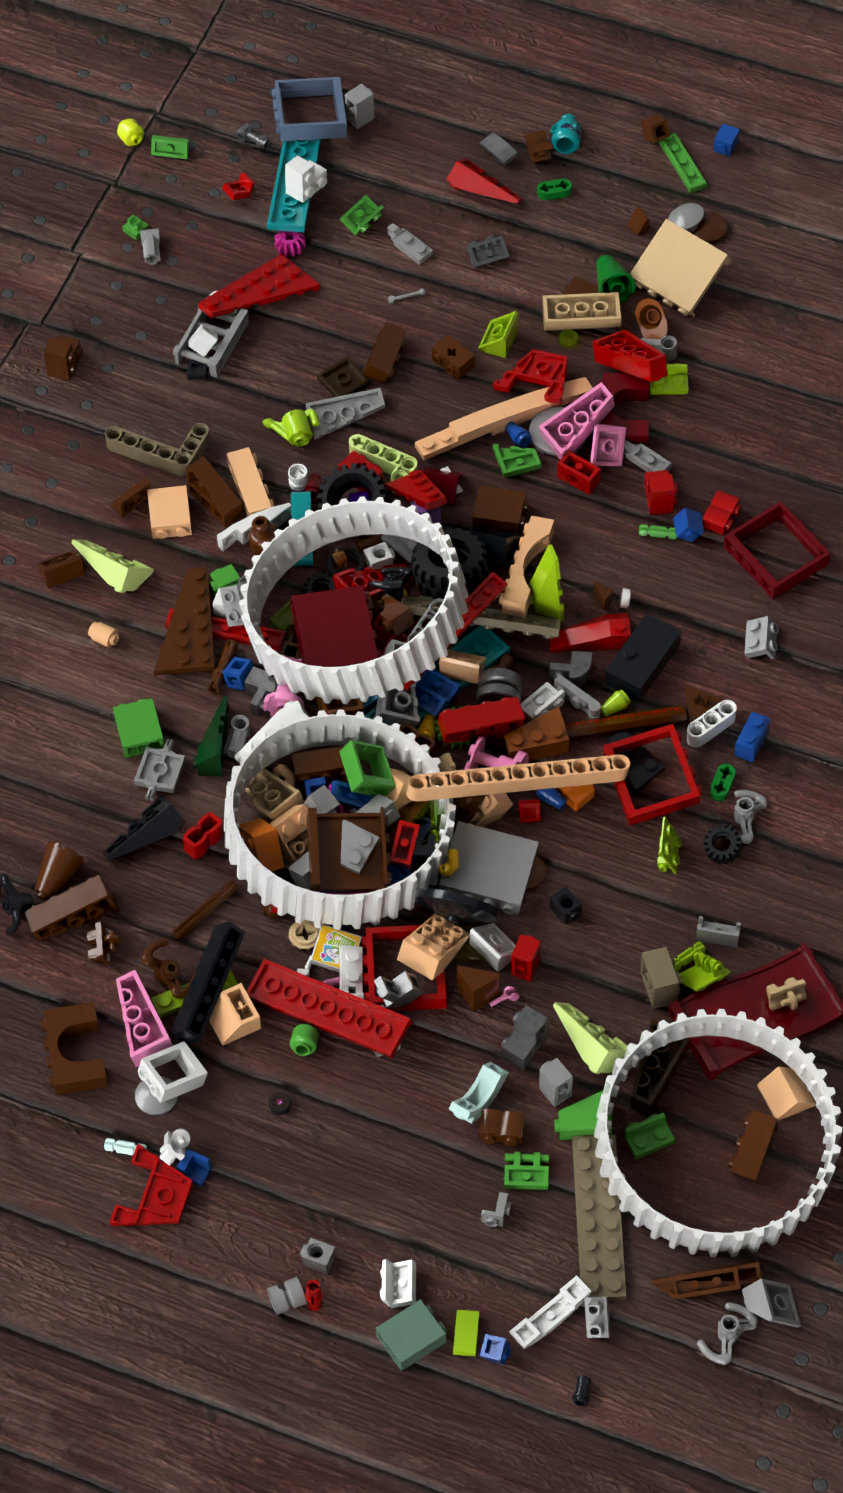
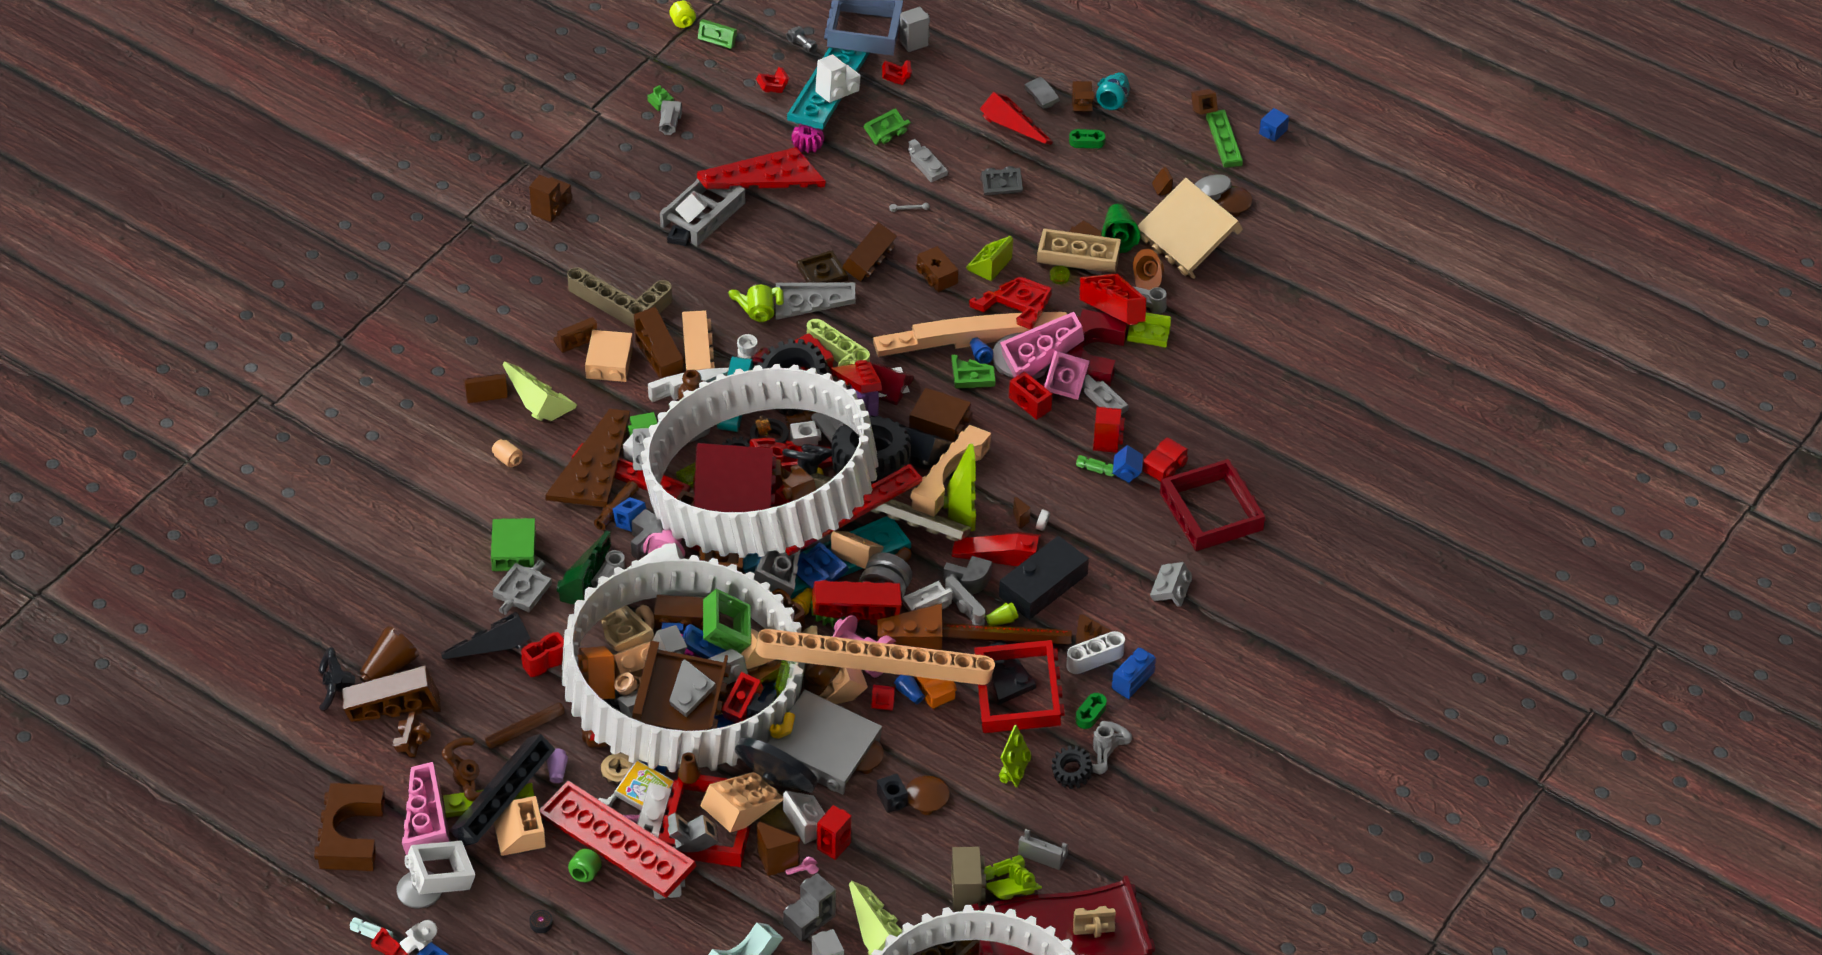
camera: 10 degrees right, 10 degrees down
(248, 946) = (557, 765): none -> lavender cone
(291, 852) = (625, 683): none -> light nougat tile
(354, 155) = (896, 73): none -> red bracket
(375, 925) = (688, 769): none -> reddish brown cone
(597, 898) = (927, 794): none -> reddish brown dish

